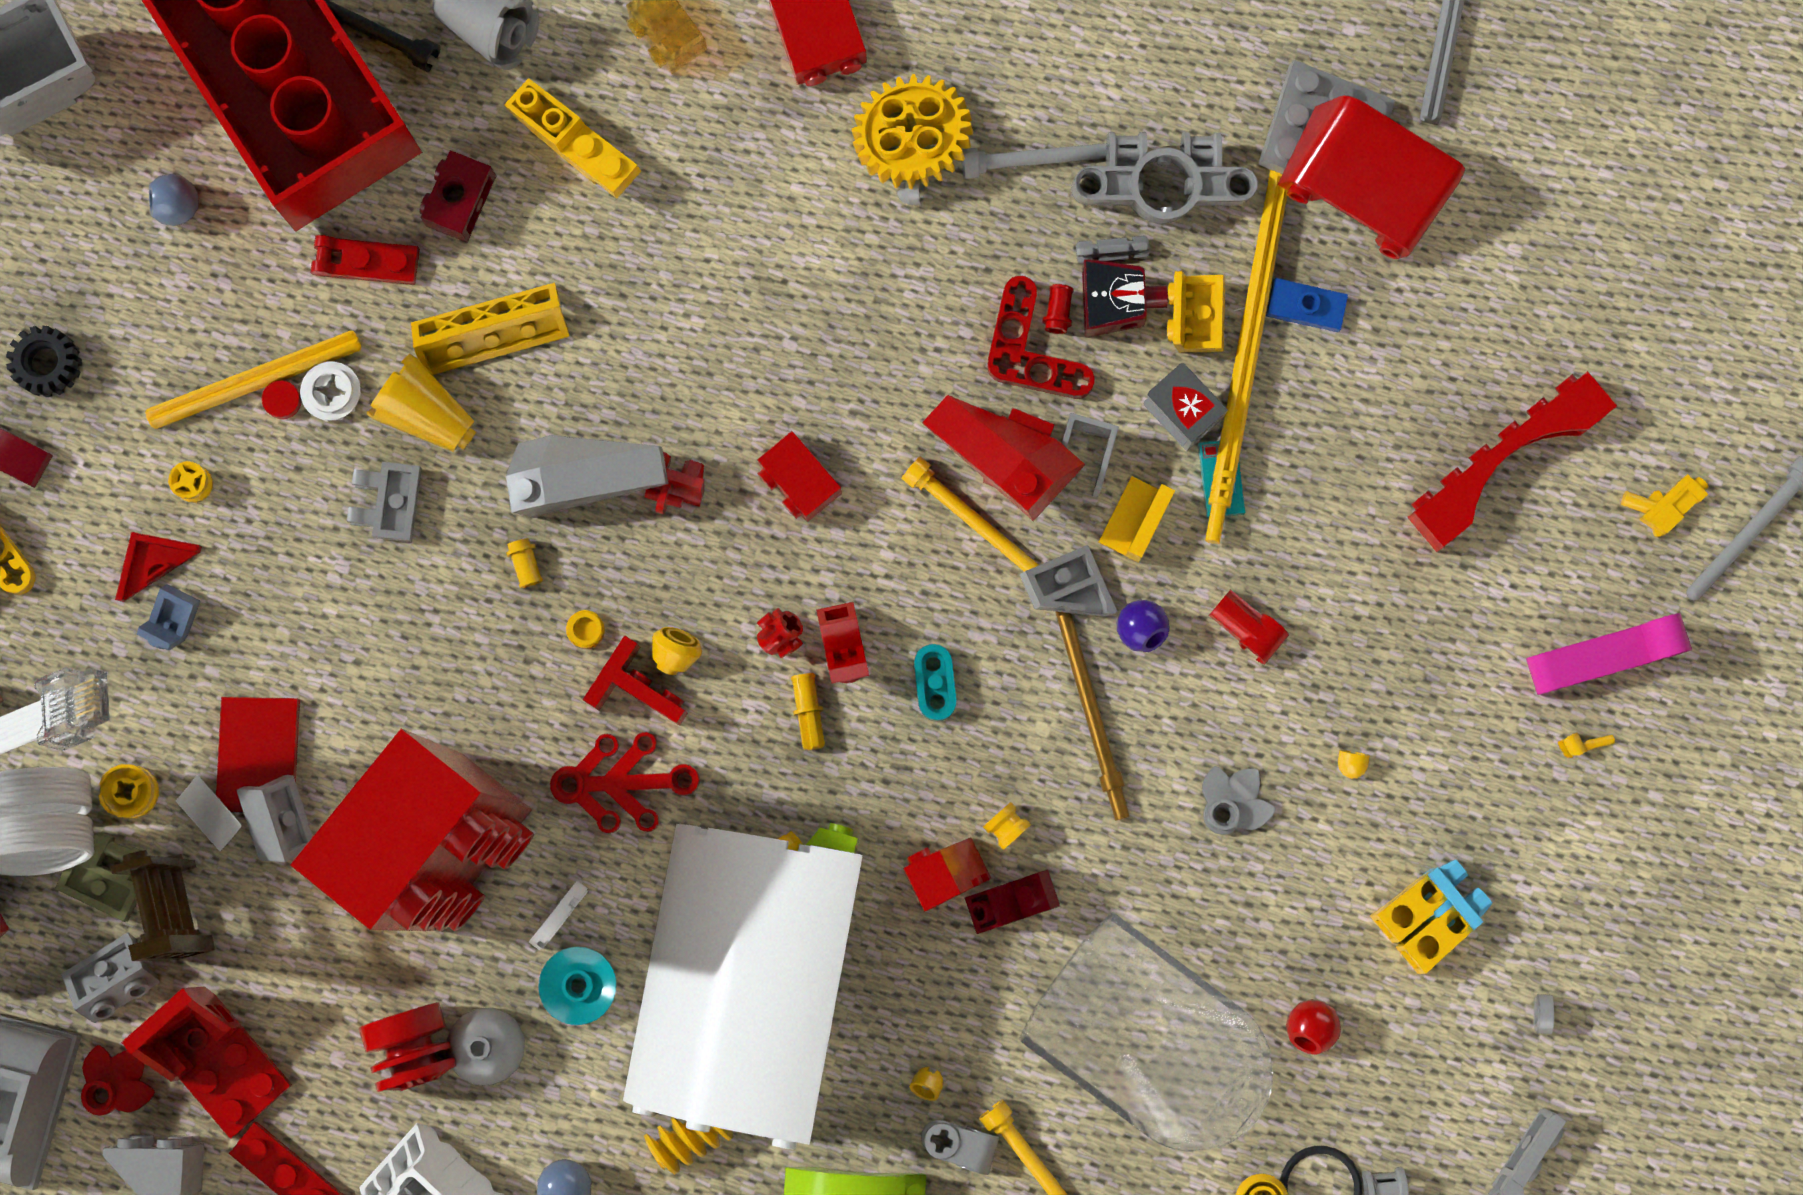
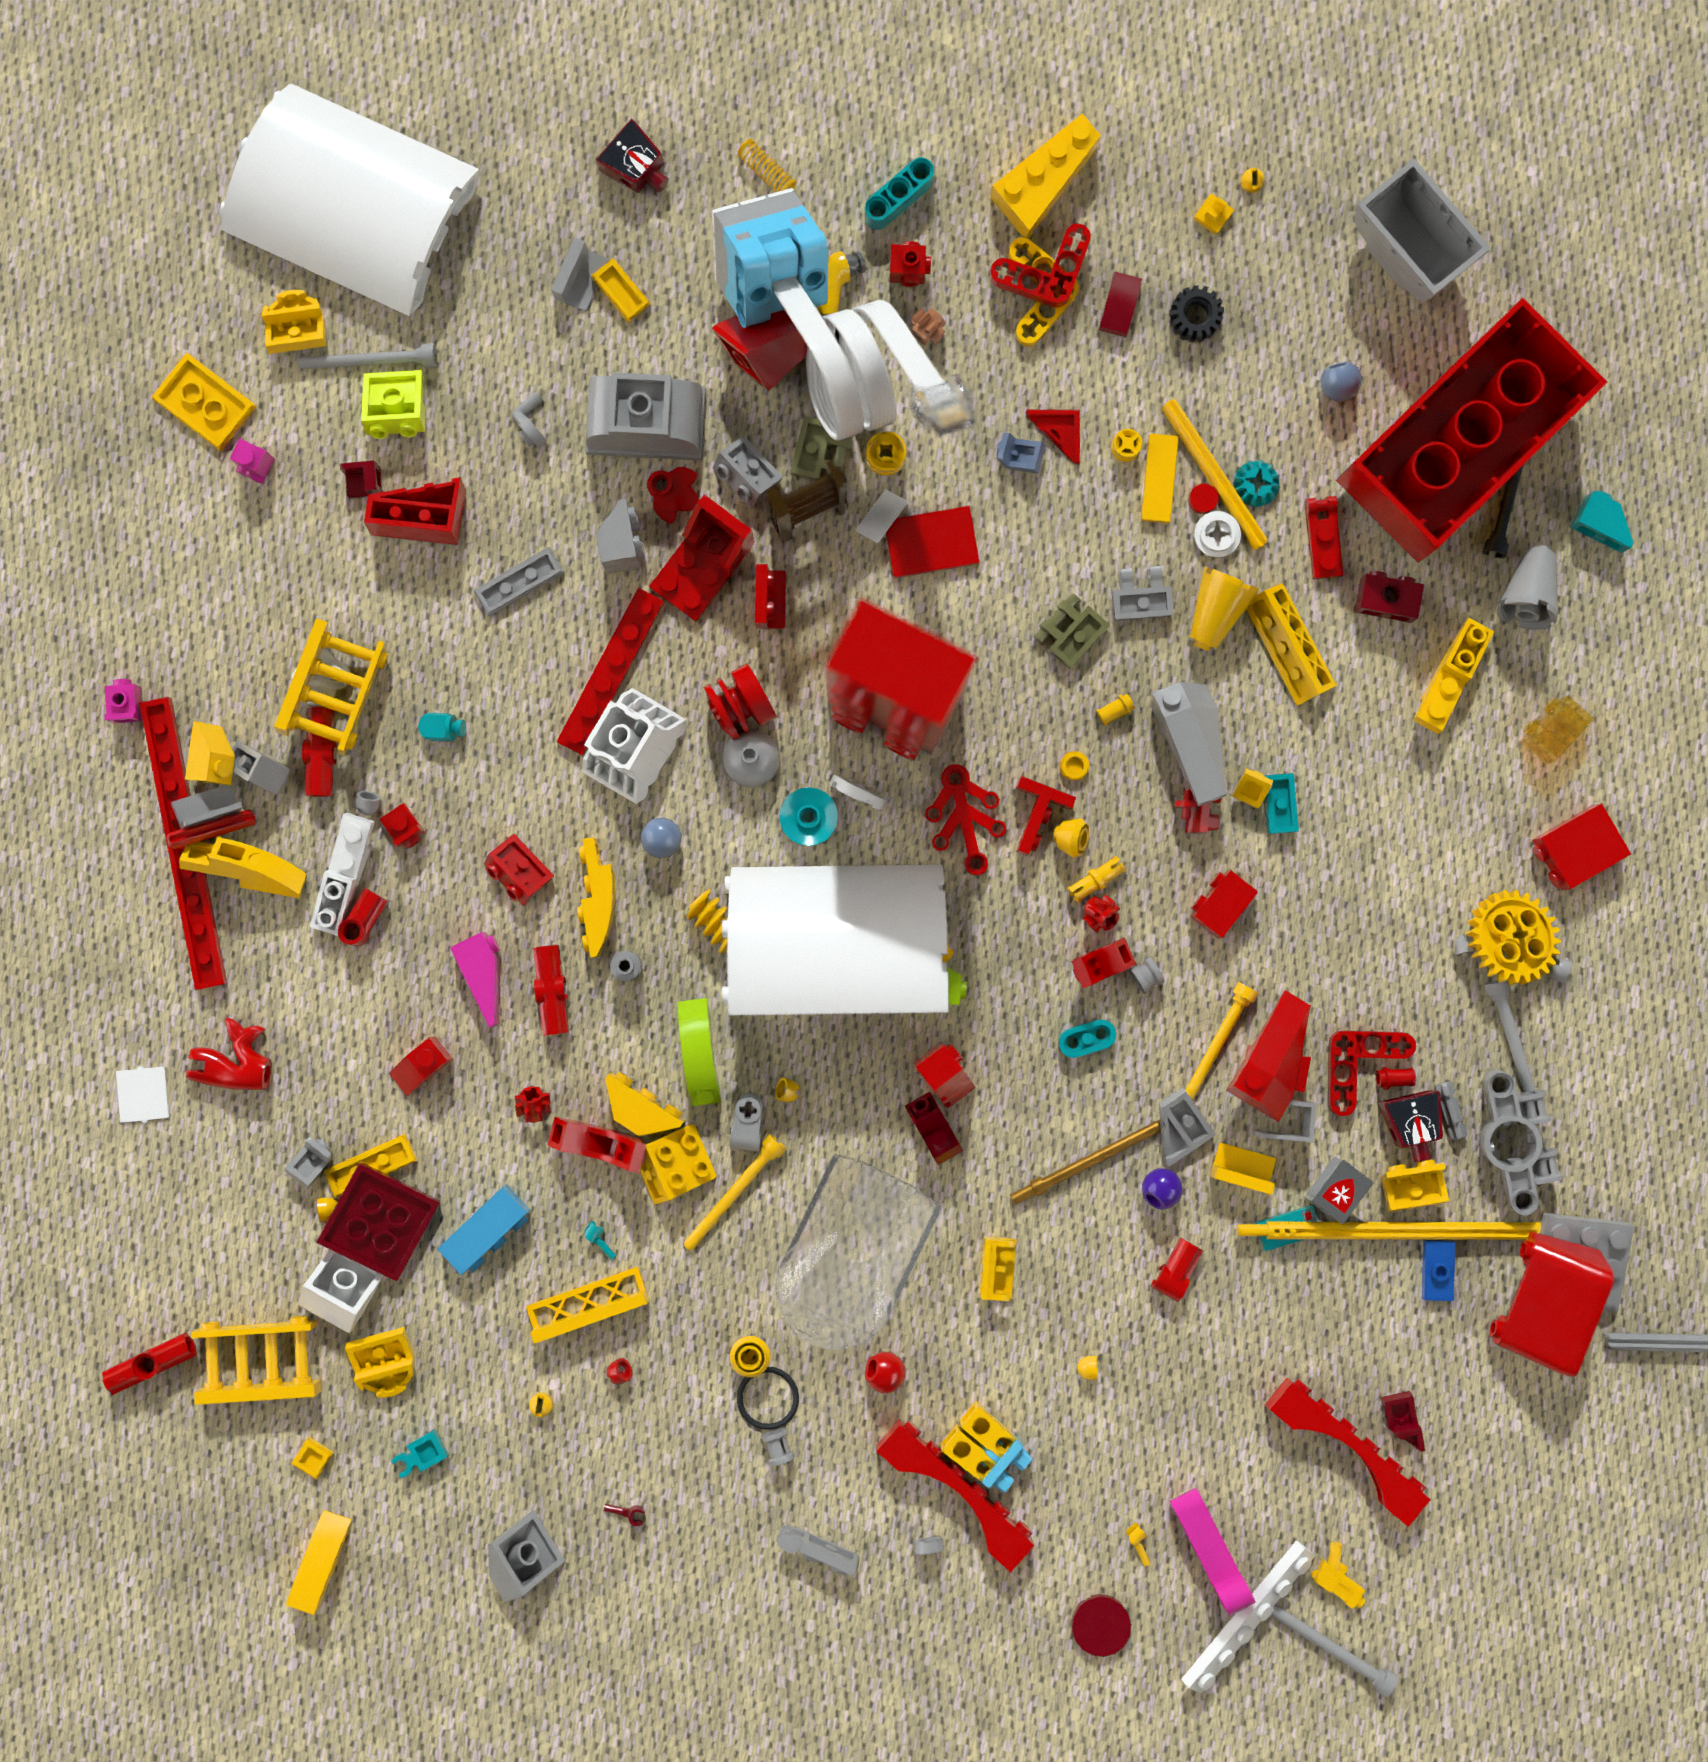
camera: 75 degrees right, 5 degrees up
(243, 449) = (1159, 478): none -> yellow tile
(275, 819) = (886, 567): light grey panel -> none
(281, 980) = (770, 598): none -> red bracket
(282, 344) = (1246, 489): none -> teal gear
(421, 591) = (1079, 635): none -> olive plate
(660, 412) = (1252, 788): none -> yellow tile
(687, 381) = (1281, 805): none -> teal plate
(735, 630) = (1096, 879): none -> yellow pin
(808, 711) = (1046, 946): yellow axle -> none
(869, 590) = (1147, 975): none -> light grey wheel
(965, 83) = (1561, 970): none -> light grey hinge
(1007, 825) = (989, 1113): yellow wheel -> none
(1206, 854) = (997, 1268): none -> yellow hinge
(1238, 796) = (1045, 1285): light grey plate -> none
(1422, 1014) = (910, 1453): none -> red arch
(1483, 385) = (1402, 1418): none -> dark red slope
(1680, 812) = (1101, 1625): none -> dark red tile
(1707, 635) = (1242, 1625): none -> white plate

